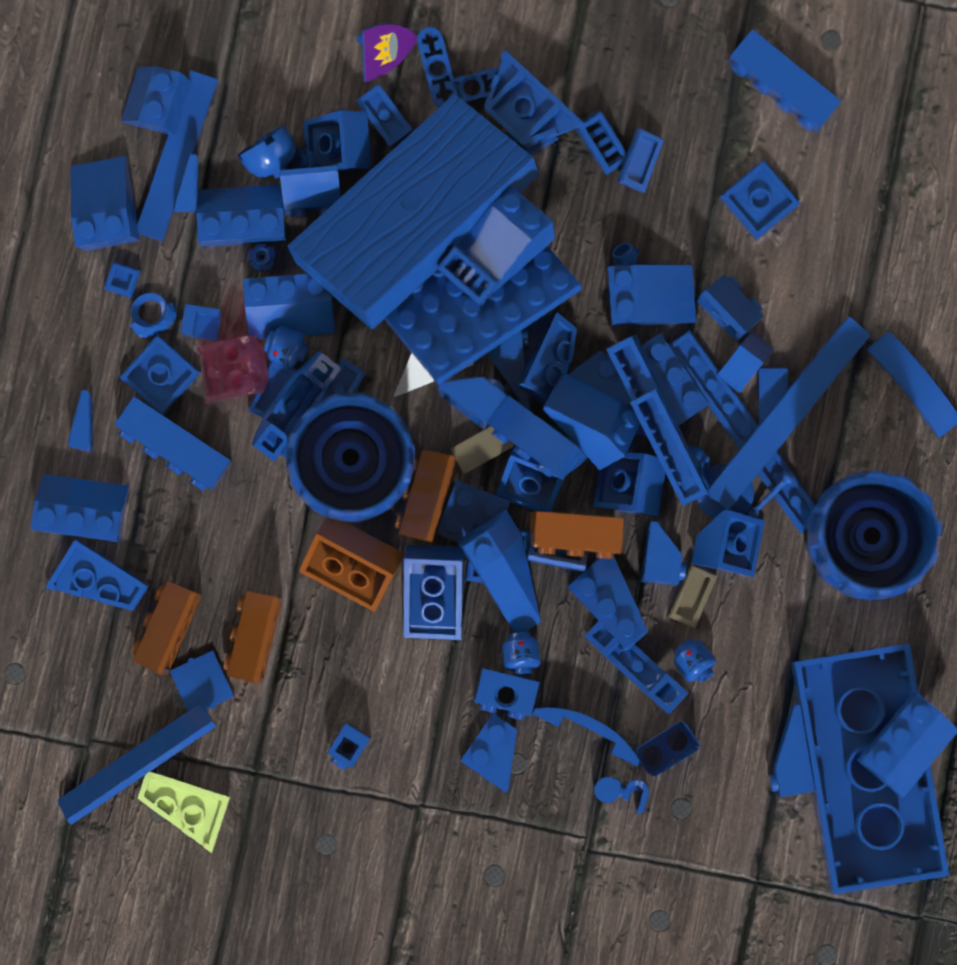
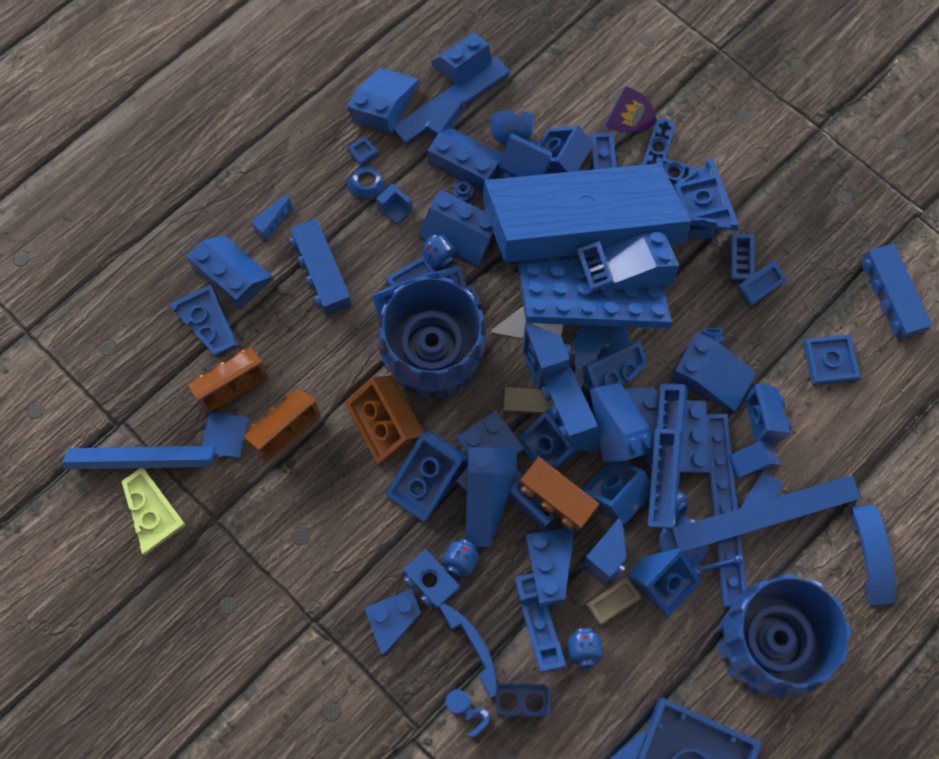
camera: 35 degrees right, 15 degrees down
(160, 375) = (344, 222): blue tile -> none
(233, 368) = (395, 244): clear pink slope -> none
(353, 736) = (295, 534): blue brick -> none
(426, 496) = (468, 406): dark orange slope -> none

